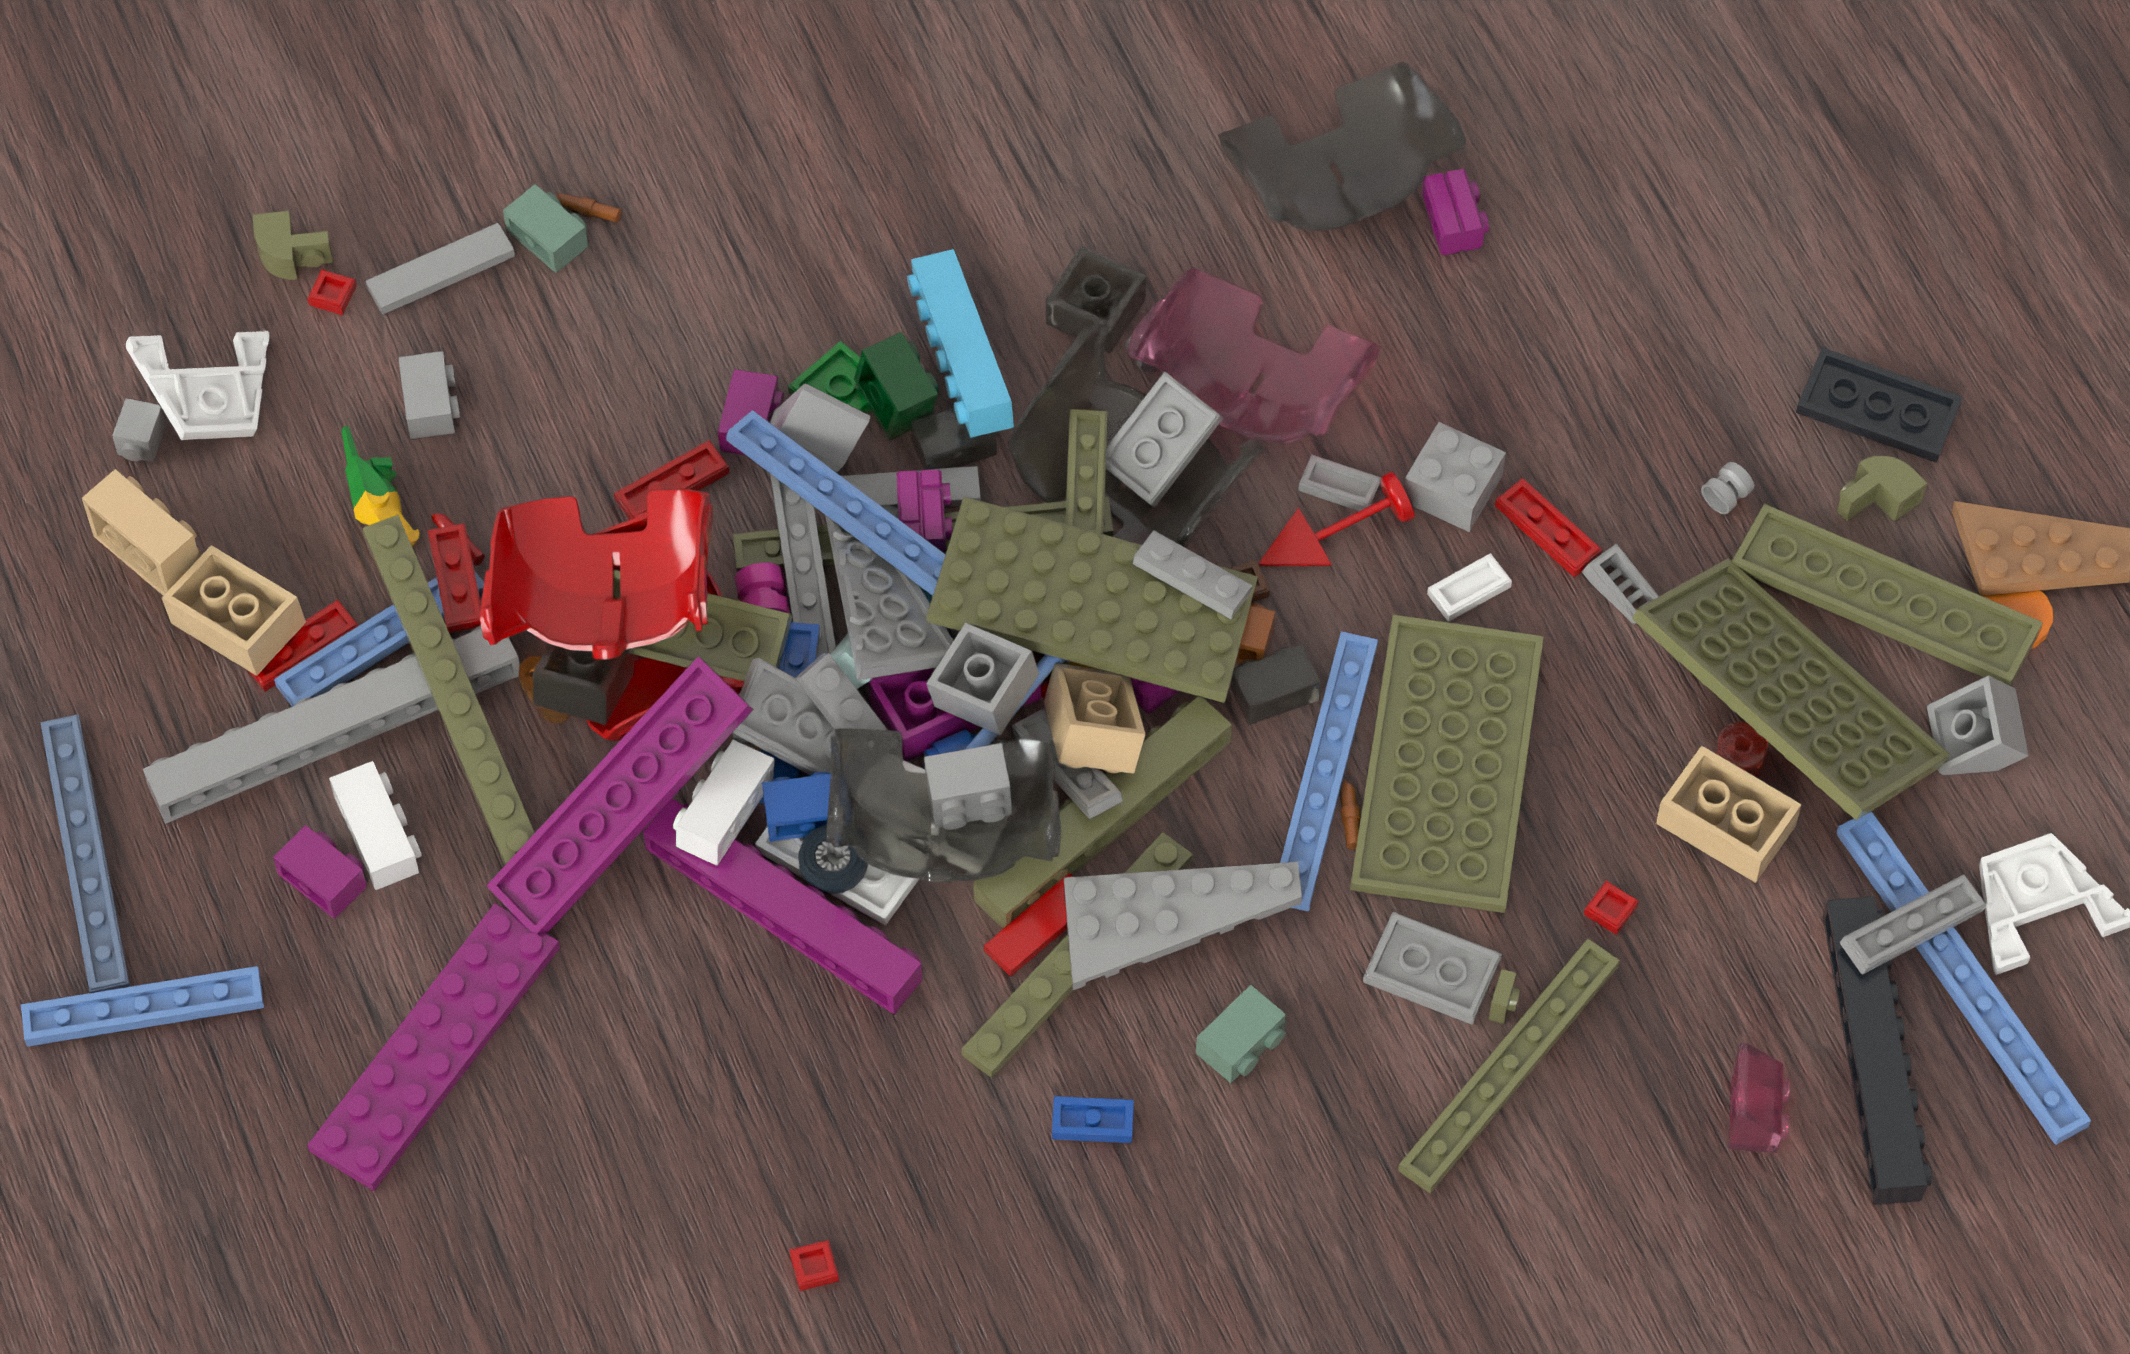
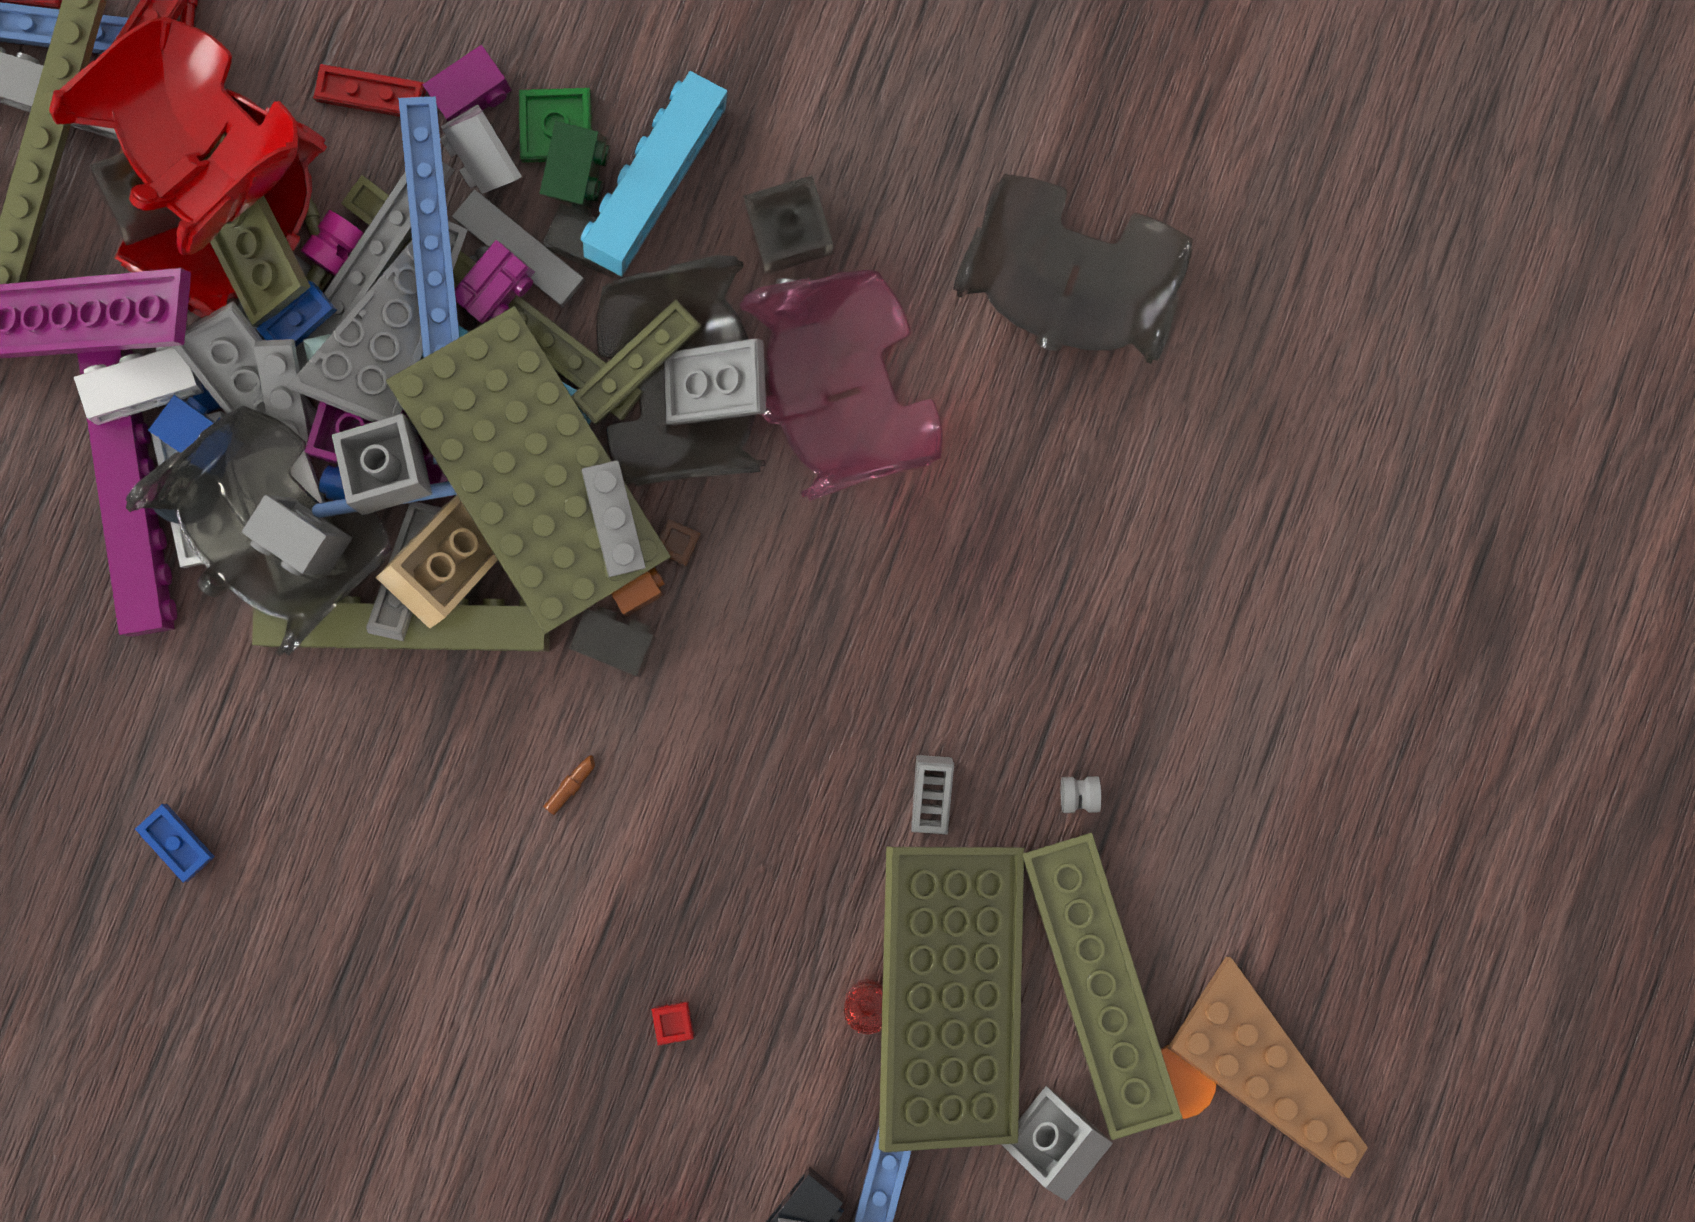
camera: 45 degrees right, 25 degrees up
(1030, 931) = (301, 667): red tile -> none
(1051, 980) = (288, 711): olive plate -> none
(1156, 913) = (347, 734): light grey wing -> none
(1241, 1034) = (328, 878): sand green brick -> none
(1301, 547) = (742, 549): red piece -> none
(1328, 759) = (582, 738): medium blue plate -> none
(1339, 483) = (820, 530): light grey tile -> none
(1432, 968) = (509, 950): light grey tile -> none
(1447, 764) = (670, 813): olive plate -> none
(1454, 211) = (1118, 392): magenta brick -> none
(1454, 476) = (897, 602): light grey brick -> none
(1469, 587) = (826, 693): white tile -> none
(1505, 996) = (529, 1022): olive plate -> none
(1508, 1066) = (482, 1072): olive plate -> none
(1548, 527) = (928, 700): red tile -> none
(1728, 814) = (812, 1043): tan brick -> none
(1879, 404) = (1259, 833): black plate -> none
(1887, 483) = (1198, 900): olive brick -> none

